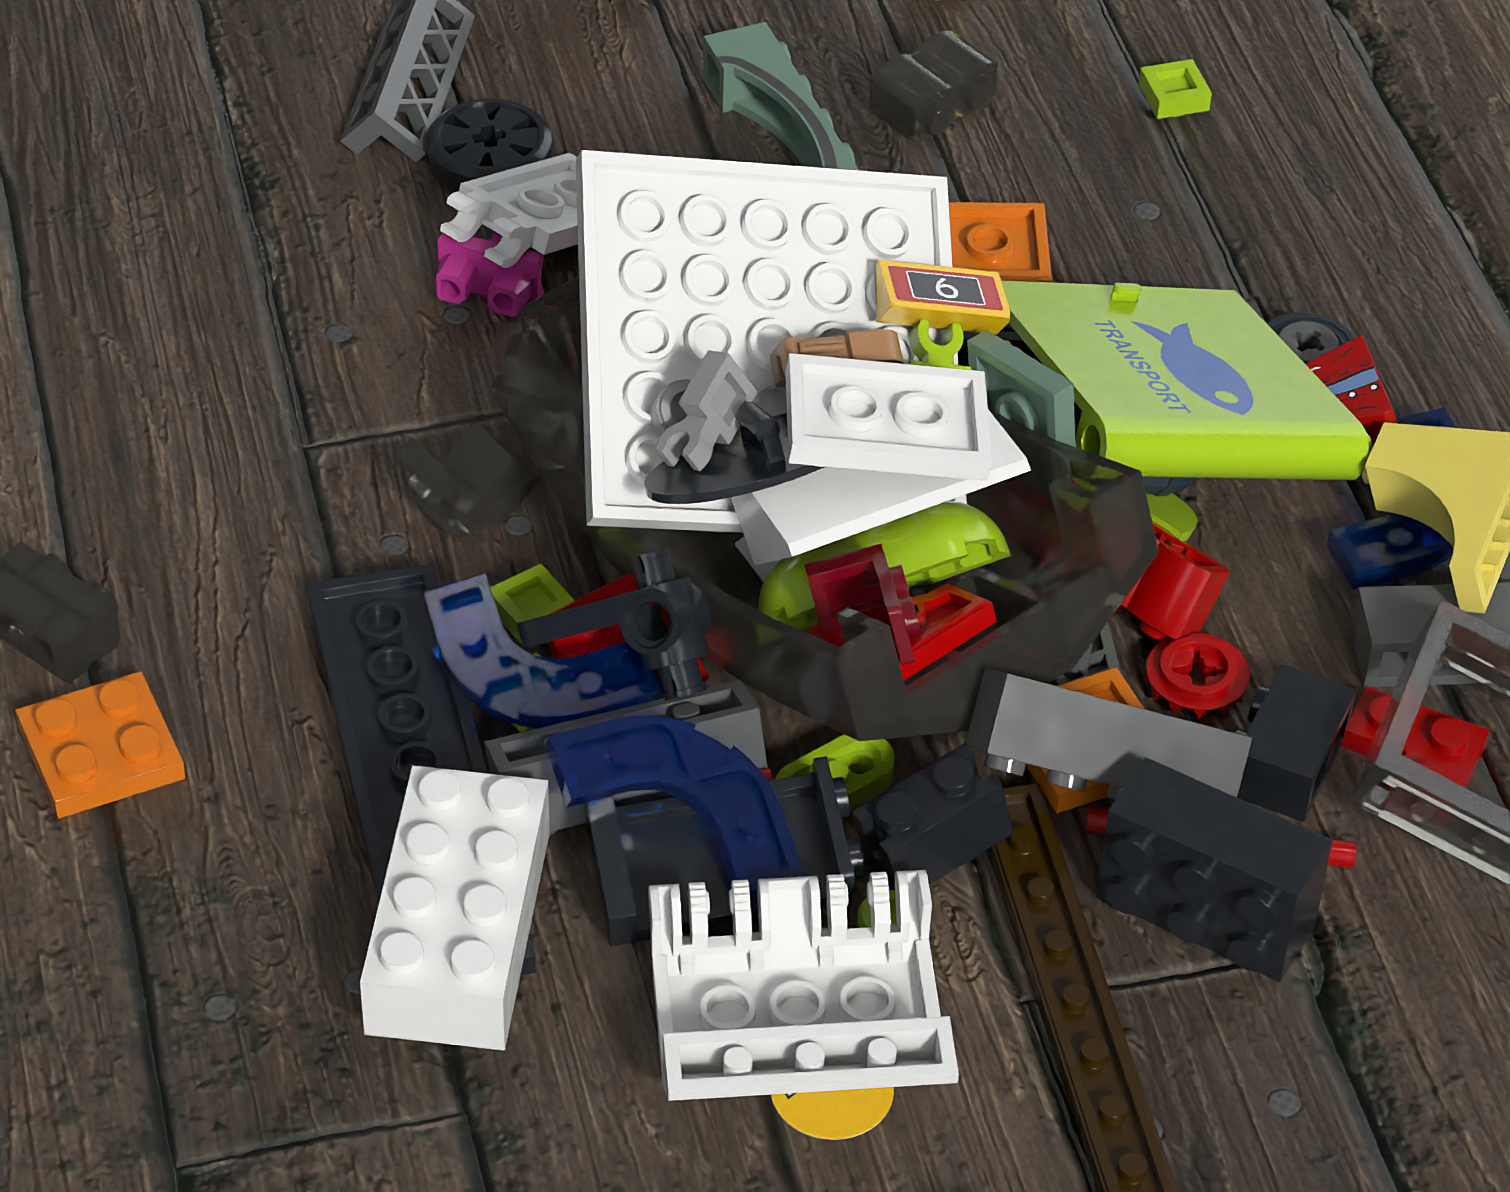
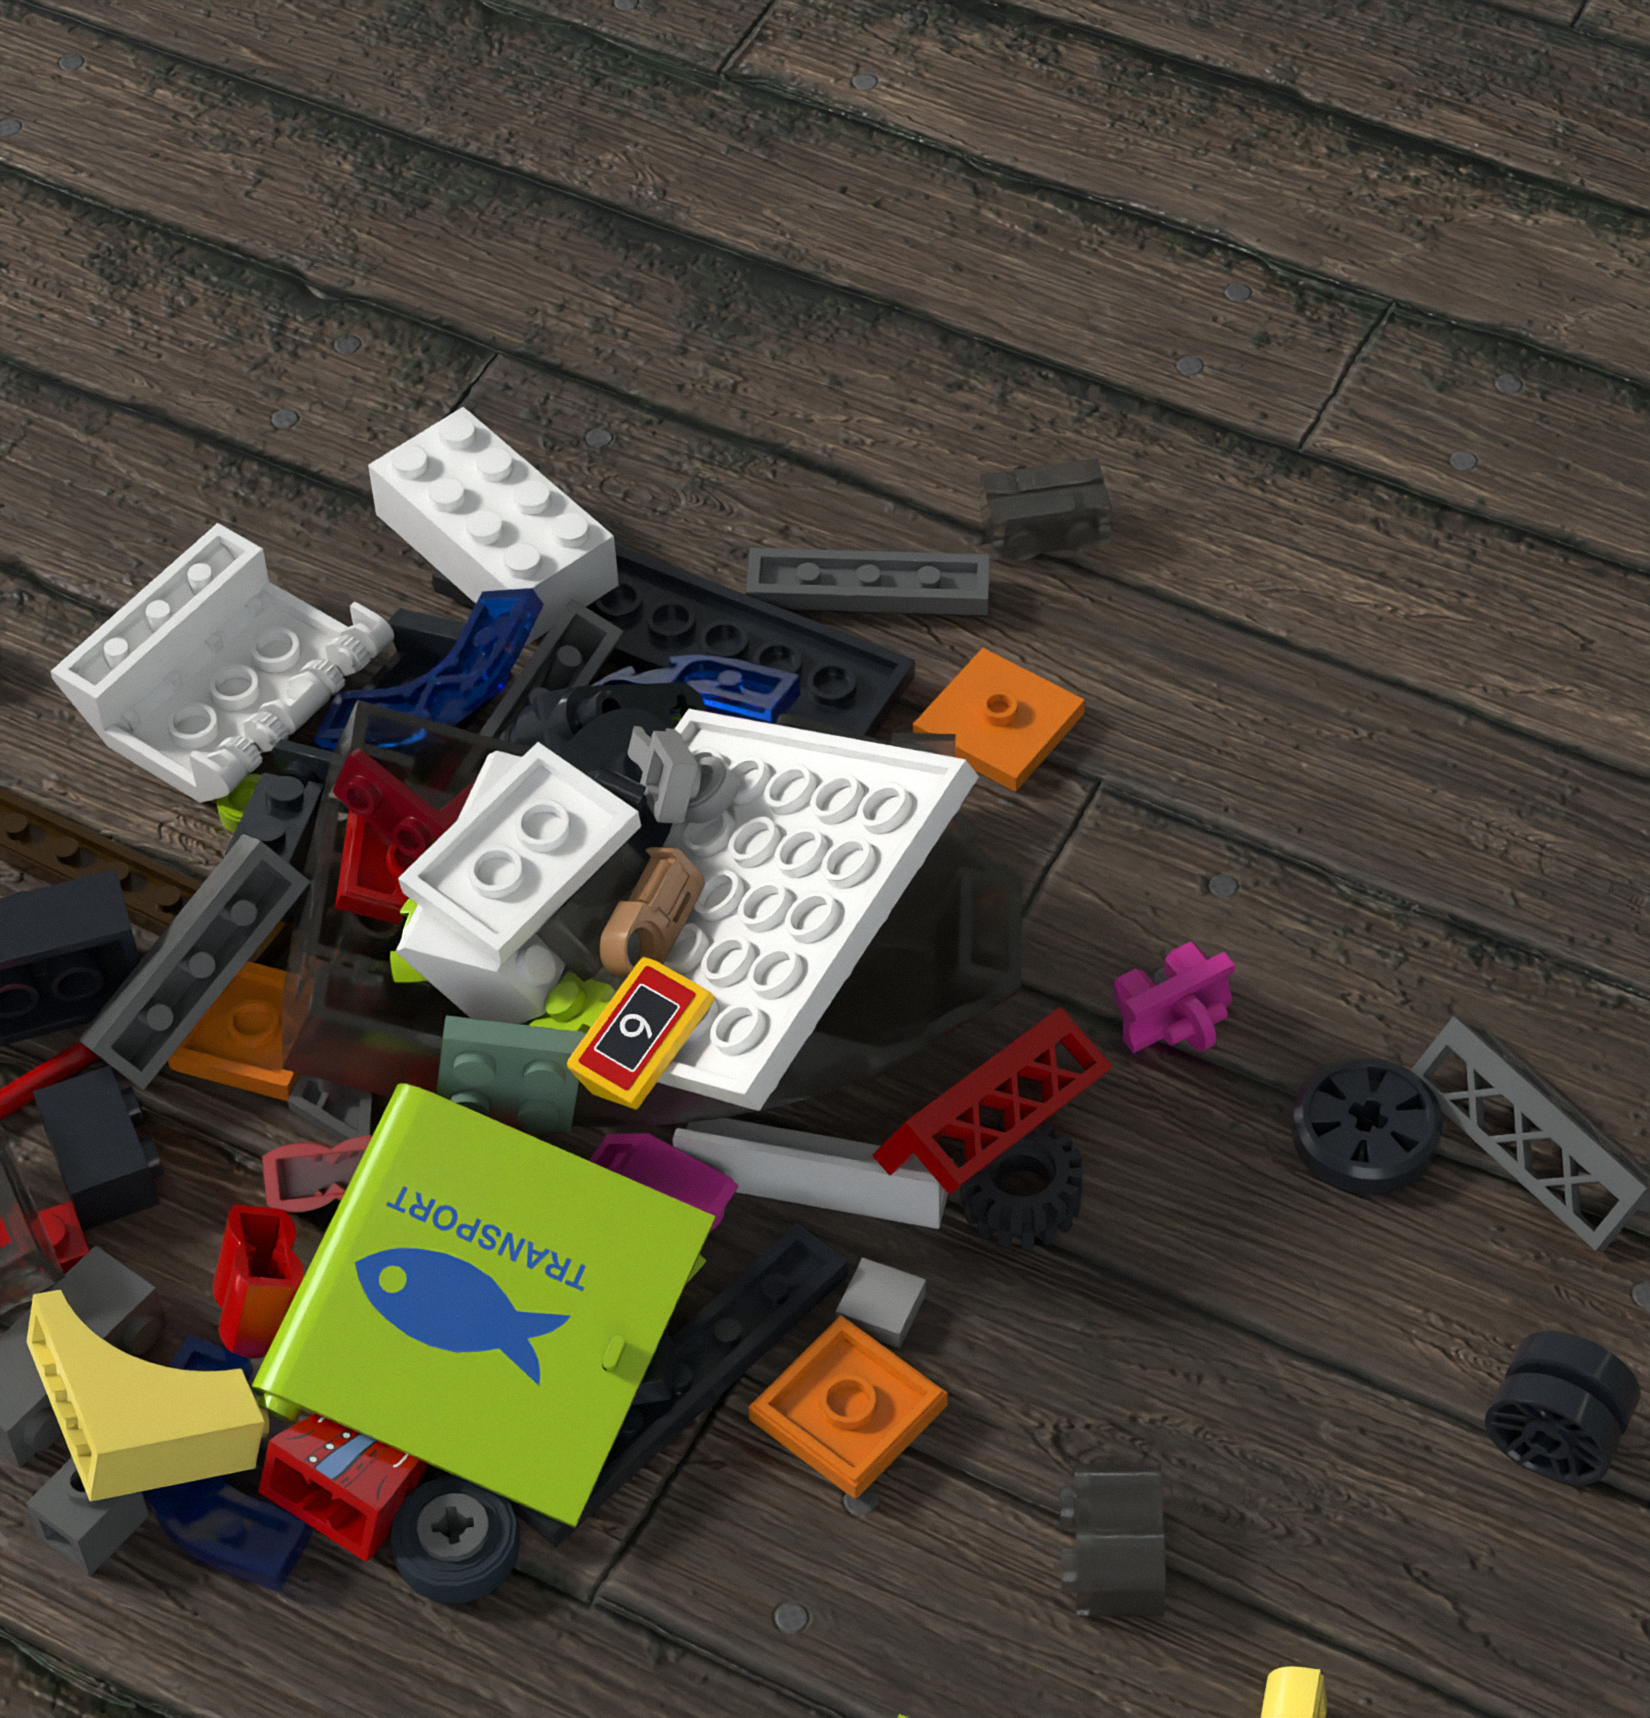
camera: 135 degrees right, 5 degrees up
(100, 744) = (892, 489): orange plate -> none
(238, 680) = (870, 580): none -> dark grey plate
(304, 525) = (1002, 717): none -> orange plate
(523, 204) = (1209, 1077): white tile -> none
(756, 78) = (1259, 1392): sand green arch -> none
(1218, 662) = (235, 1134): red gear -> none
(1285, 538) = (255, 1278): none -> red brick

